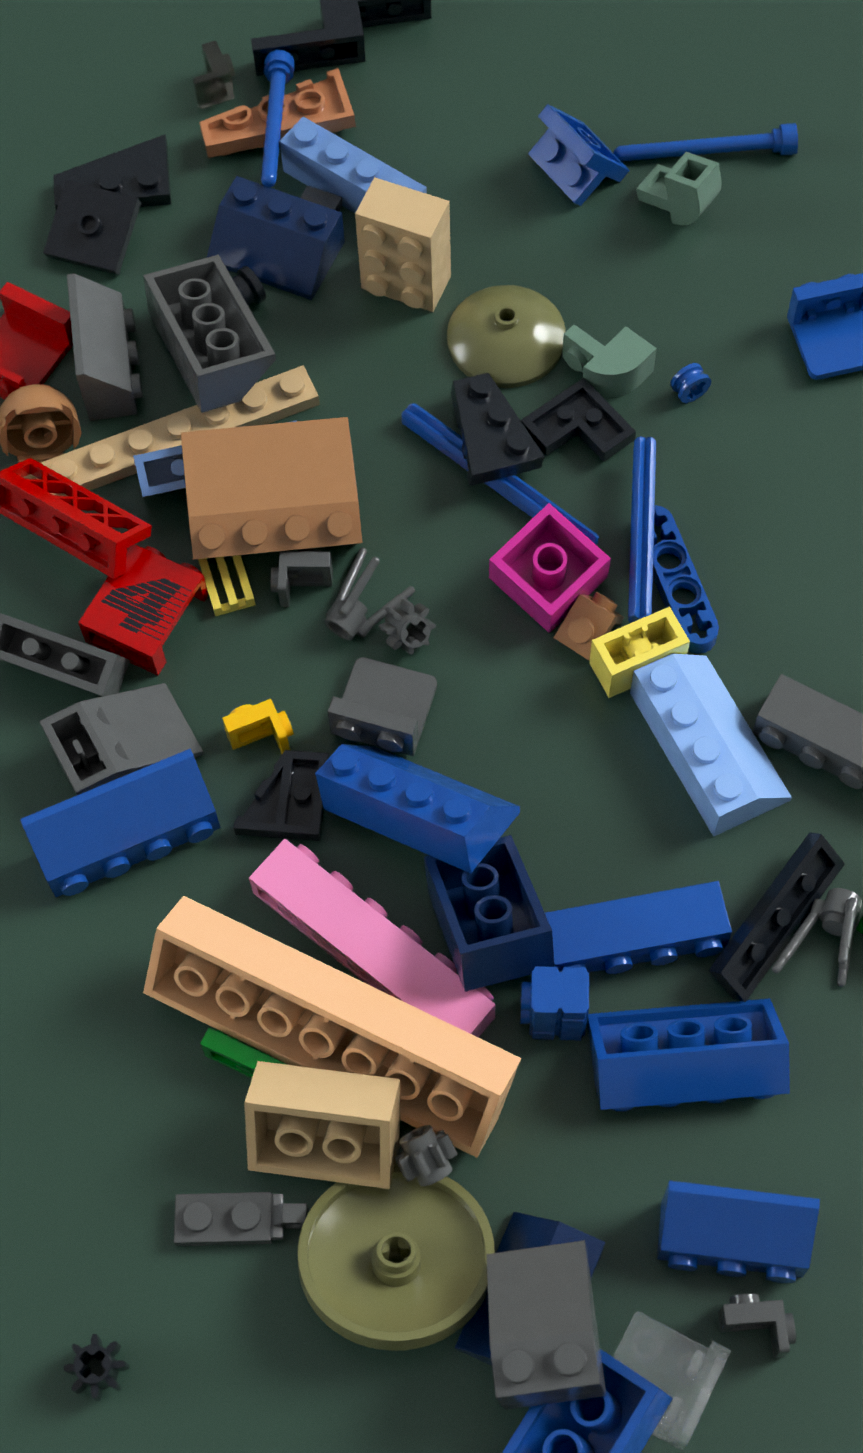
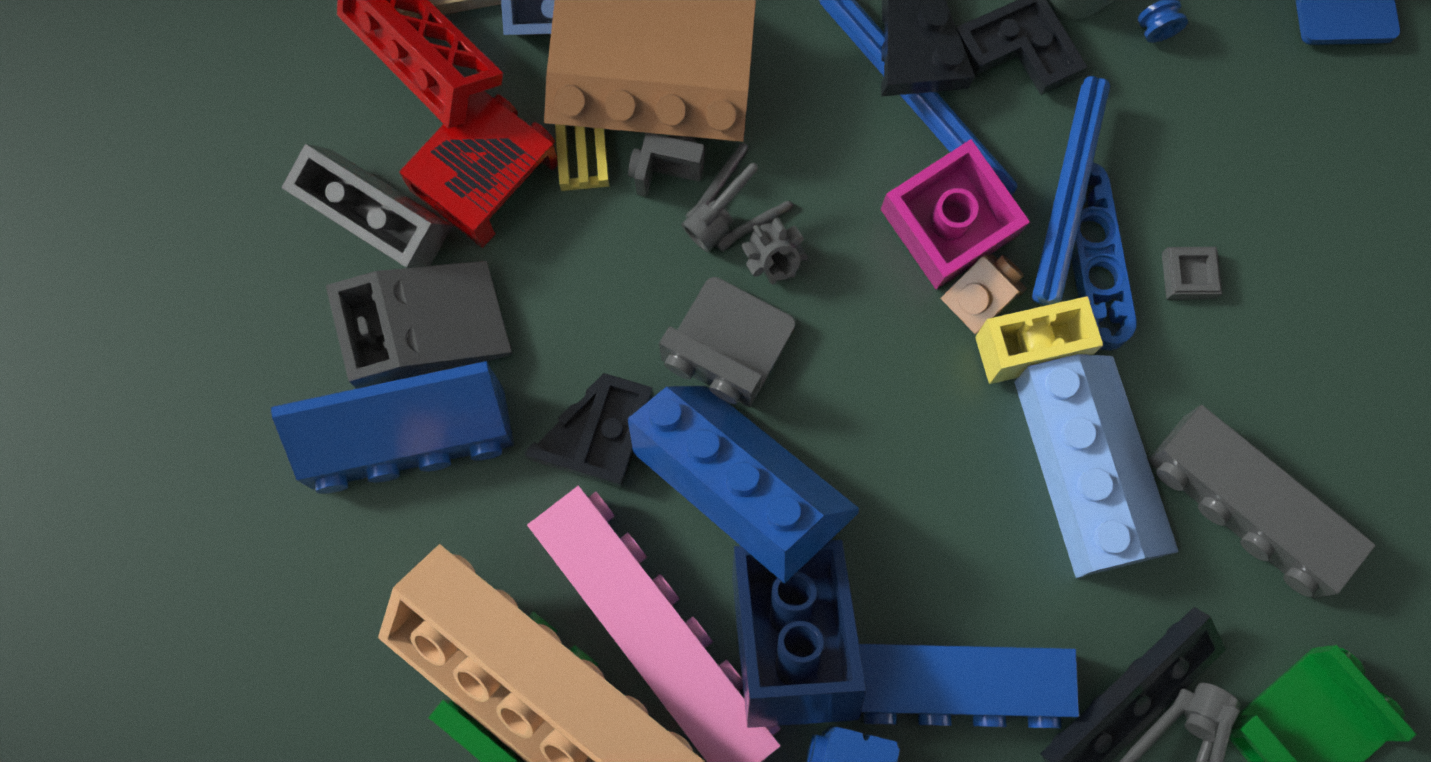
camera: 10 degrees right, 10 degrees up
(256, 722) = (574, 330): yellow bracket -> none
(757, 578) = (1191, 273): none -> dark grey tile

